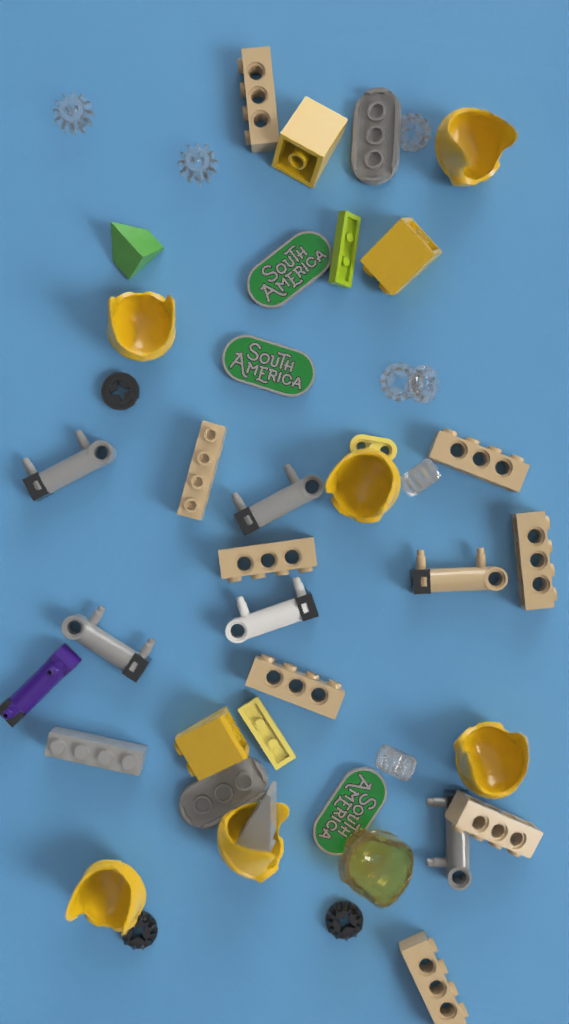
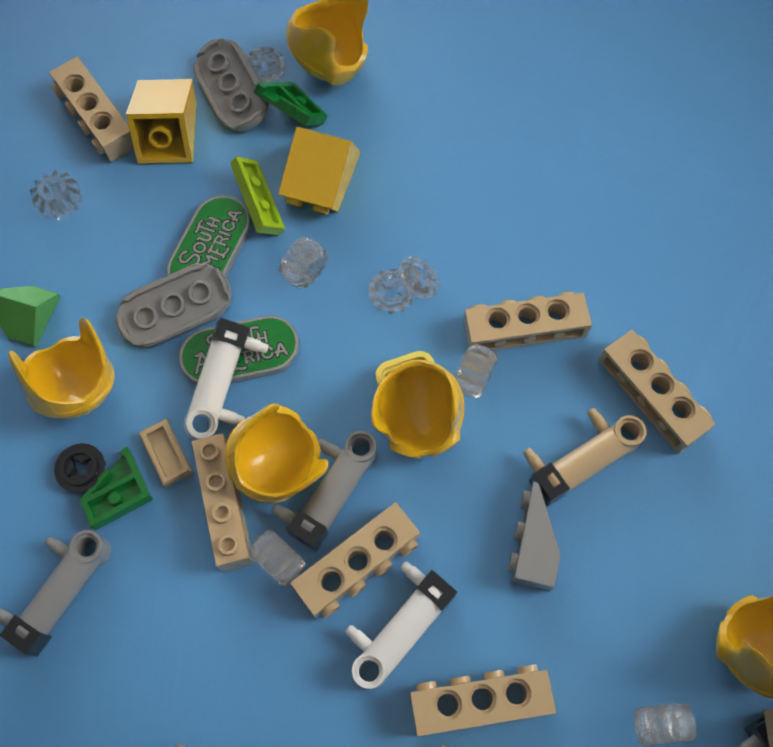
camera: 25 degrees left, 20 degrees down
(137, 423) = (116, 492): none -> green wing
(182, 412) = (166, 453): none -> tan tile
(217, 529) = (277, 558): none -> clear gear
(240, 306) = (173, 305): none -> light grey tile
(251, 462) = (273, 455): none -> yellow piece
(261, 362) = (216, 377): none -> white piece
(347, 327) = (303, 262): none -> clear gear
(386, 617) = (537, 549): none -> light grey slope
(414, 182) = (291, 101): none -> green wing

